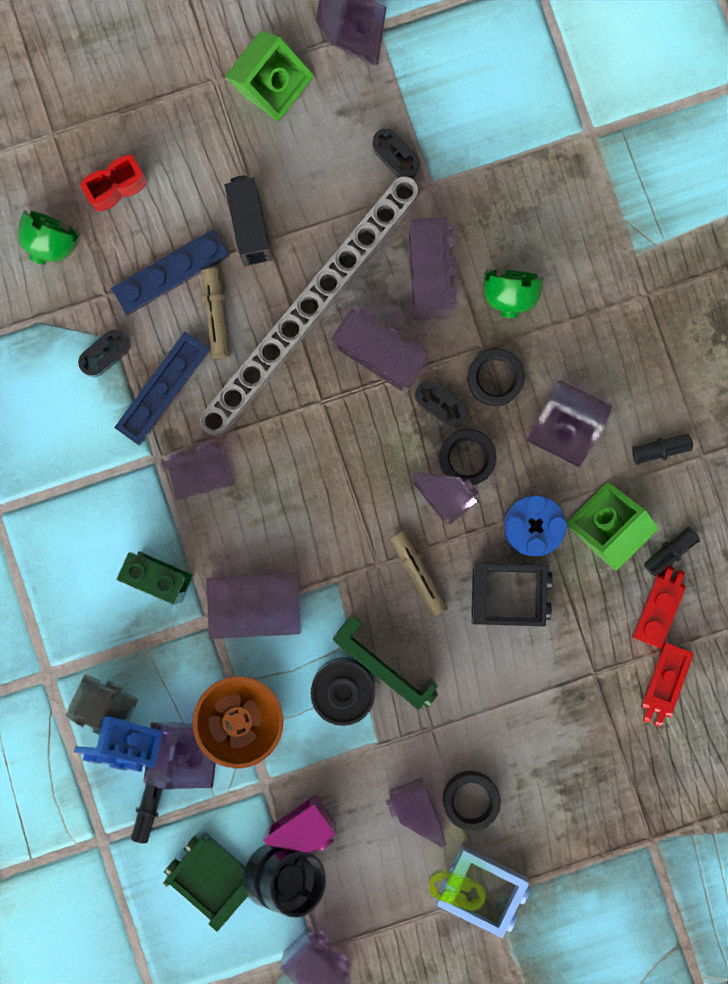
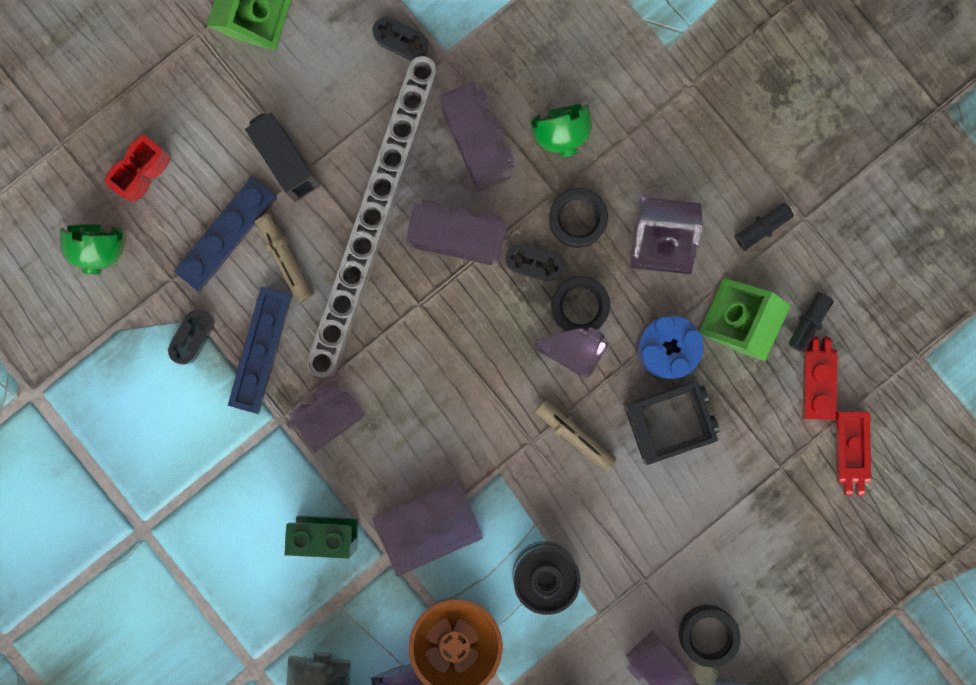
camera: 20 degrees left, 0 degrees up
(415, 697) = (615, 556): dark green panel -> none

